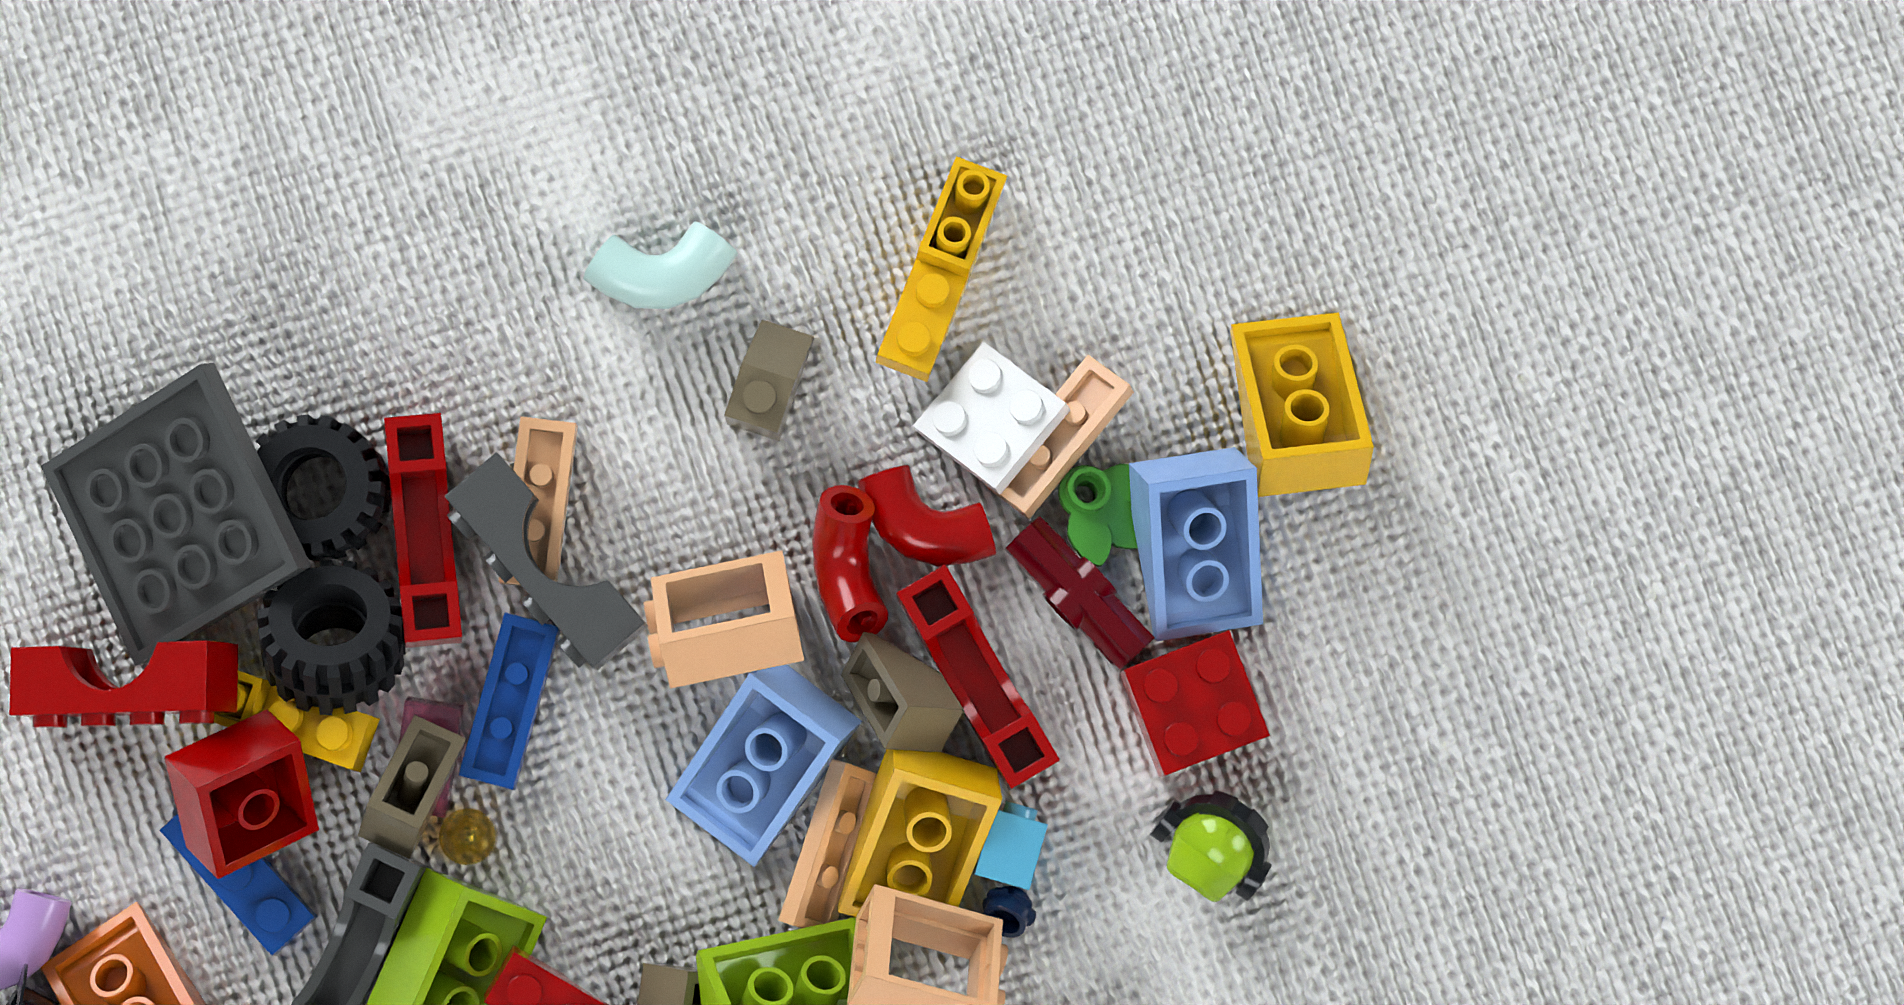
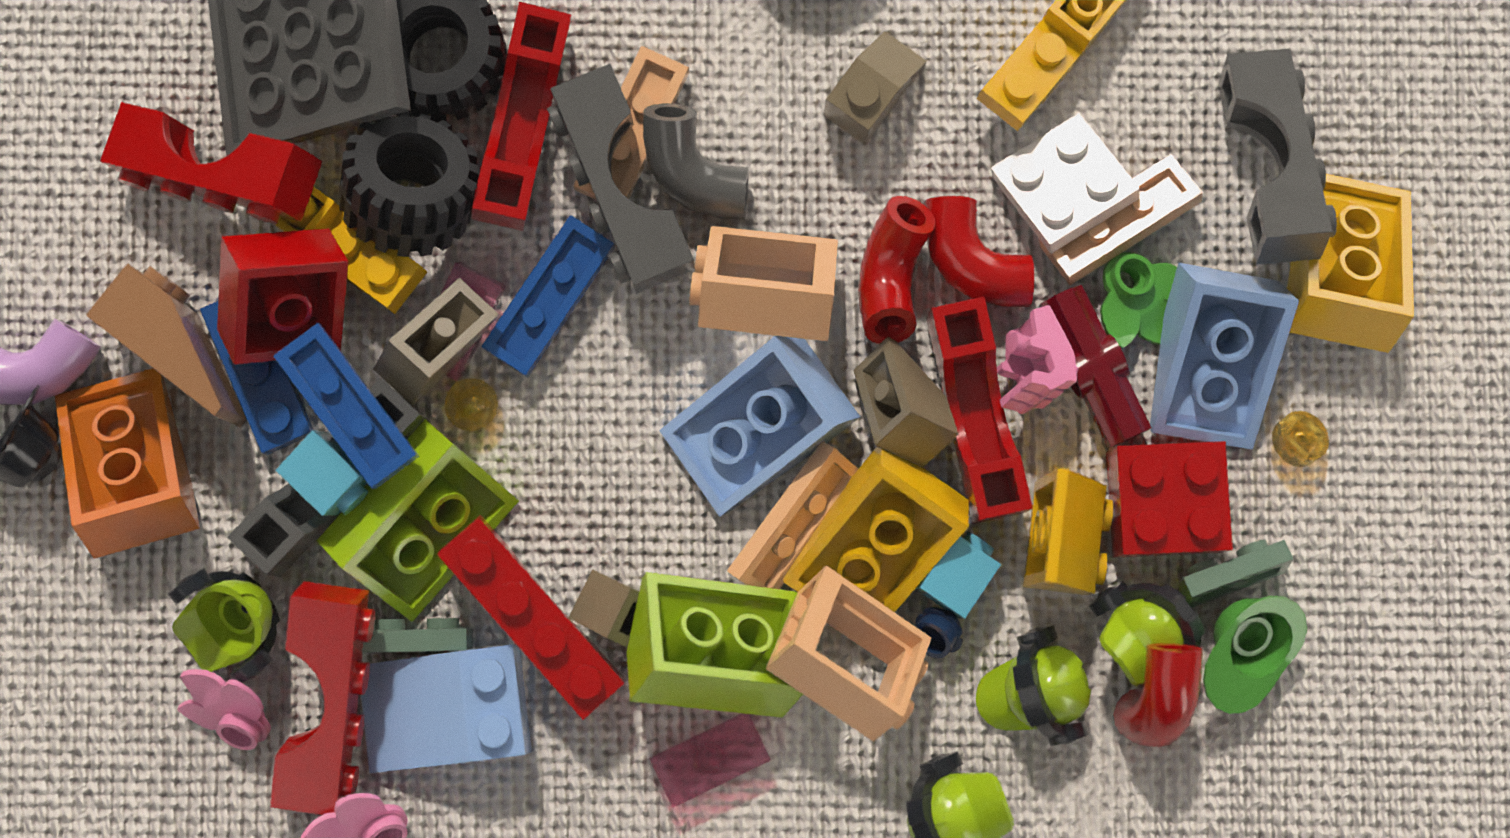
camera: 25 degrees right, 0 degrees up
(138, 869) = (155, 323): none -> medium nougat slope
(345, 884) = (346, 406): none -> blue plate
(346, 958) = (324, 475): none -> medium azure brick
(606, 531) = (682, 169): none -> dark grey cylinder
(1021, 607) = (1038, 361): none -> bright pink hand
(1105, 772) = (1067, 534): none -> yellow slope
(1124, 936) = (1037, 690): none -> lime cap
(1163, 272) = (1264, 99): none -> dark grey arch
(1251, 903) = (1168, 697): none -> red cylinder
(1263, 769) = (1253, 565): none -> sand green plate
(1306, 598) = (1300, 438): none -> clear yellow tile
(1322, 828) = (1252, 650): none -> bright green piece

